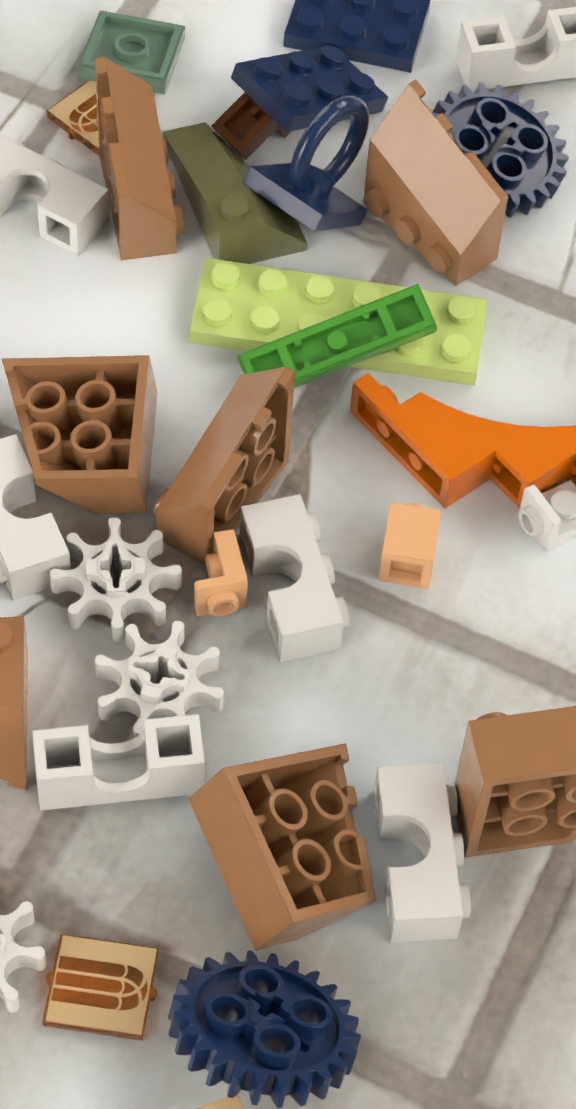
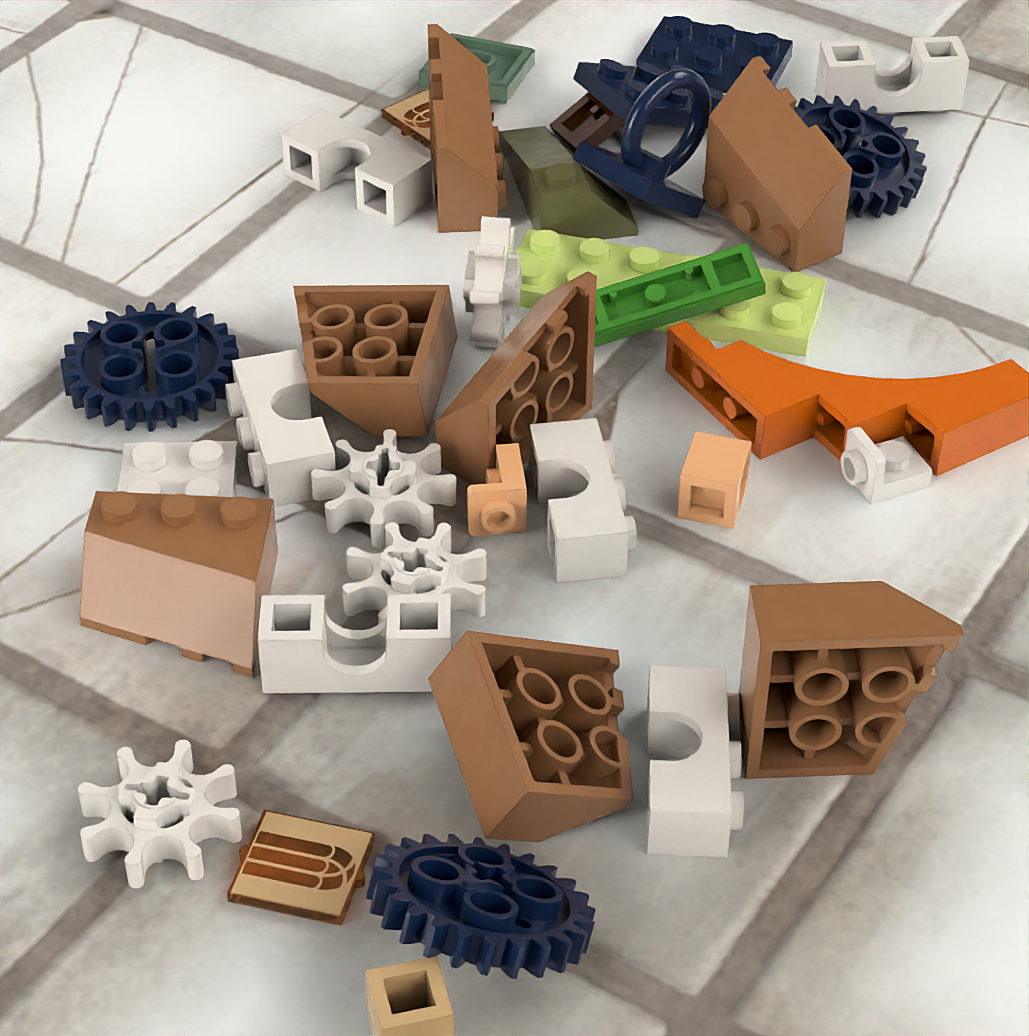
camera: 10 degrees right, 15 degrees down
(187, 344) = (492, 282): none -> white gear

